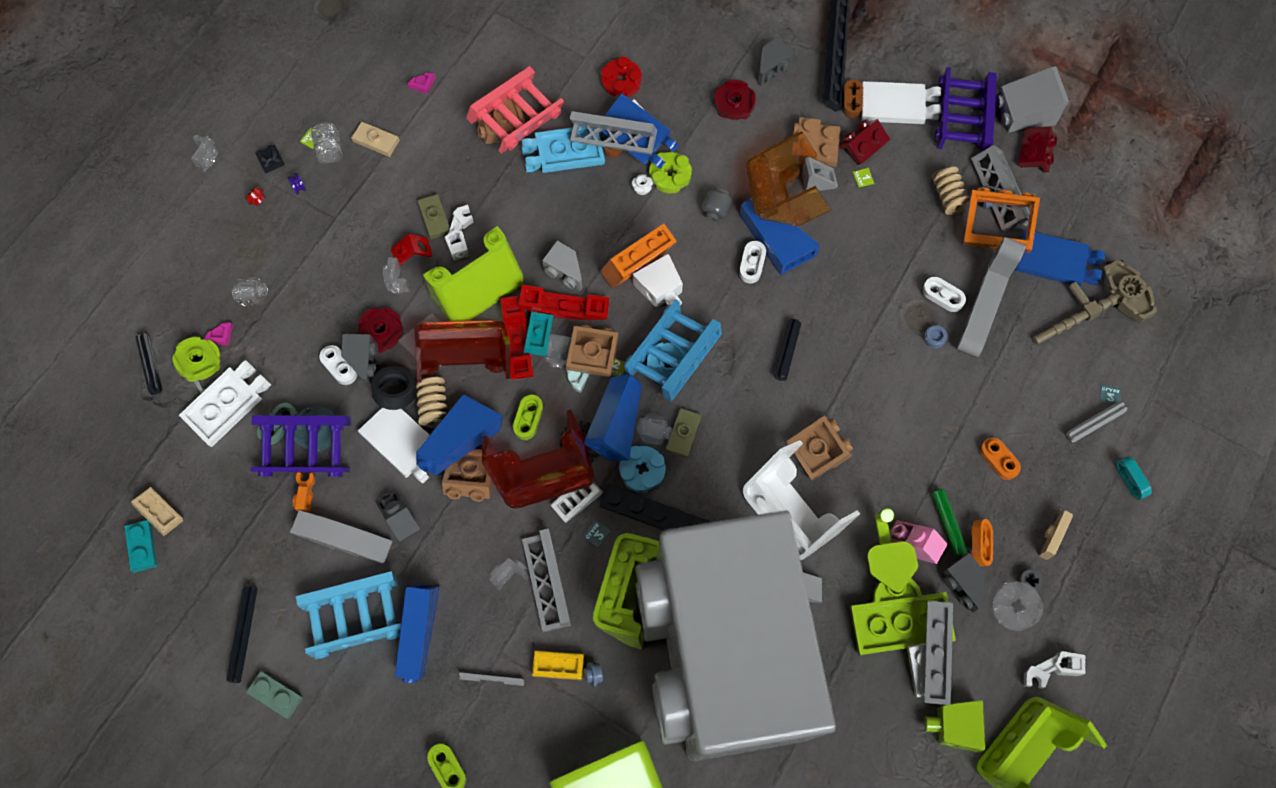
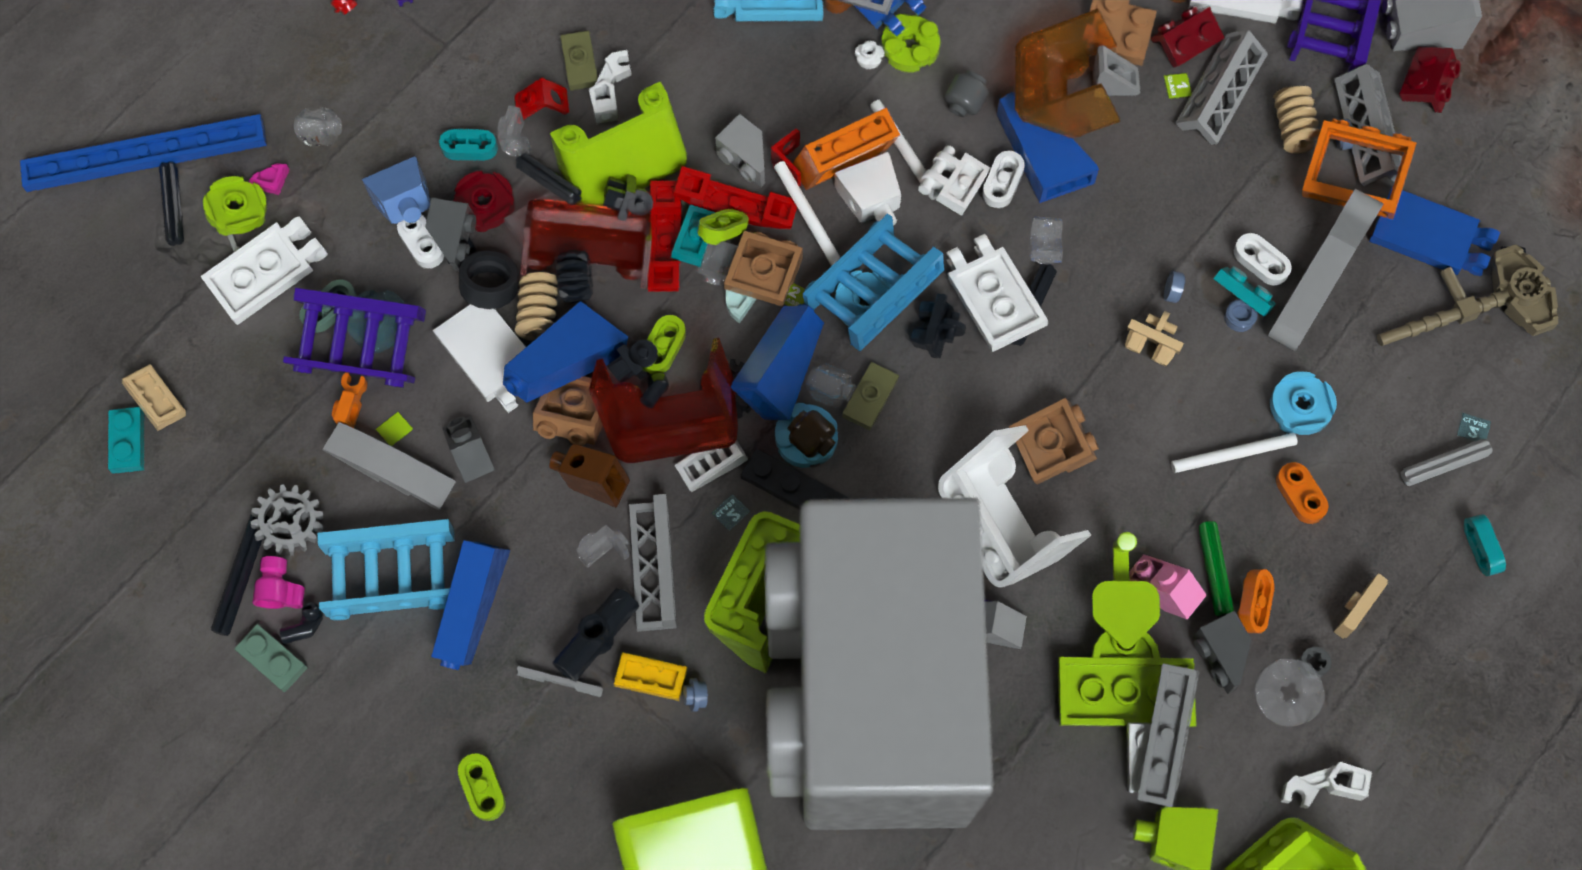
camera: 10 degrees right, 0 degrees up
(121, 329) = (142, 153): none -> blue plate
(262, 595) = (275, 526): none -> light grey gear
(269, 644) = (272, 590): none -> dark pink piece
(298, 666) = (306, 627): none -> black arm
(317, 331) = (399, 191): none -> medium blue torso
(340, 508) = (394, 429): none -> lime sticker
(362, 289) = (468, 144): none -> teal beam
(425, 307) = (548, 179): none -> black axle
(456, 376) = (574, 276): none -> black gear
(483, 313) = (624, 196): none -> hips
(491, 521) = (591, 473): none -> reddish brown torso
(506, 653) = (584, 650): none -> black piece
(509, 433) = (633, 361): none -> black hips
(529, 448) = (657, 386): none -> black arm
(558, 324) = (722, 226): none -> lime plate
(592, 272) = (779, 155): none -> red bracket
(618, 307) = (807, 212): none -> white bar
(647, 468) = (811, 433): none -> dark brown head
(689, 261) = (907, 152): none -> white bar
(724, 270) = (963, 183): none -> white plate
(727, 375) = (942, 326): none -> black hips
(761, 346) = (995, 294): none -> white tile
(790, 302) = (1045, 240): none -> clear bracket
(886, 323) = (1174, 287): none -> sand blue tile
(888, 367) = (1140, 333): none -> tan hips
(891, 169) = (1220, 78): none -> light grey fence
(929, 314) = (1235, 282): none -> teal plate
(948, 436) = (1234, 452): none -> white bar
(984, 405) = (1293, 418): none -> medium azure plate

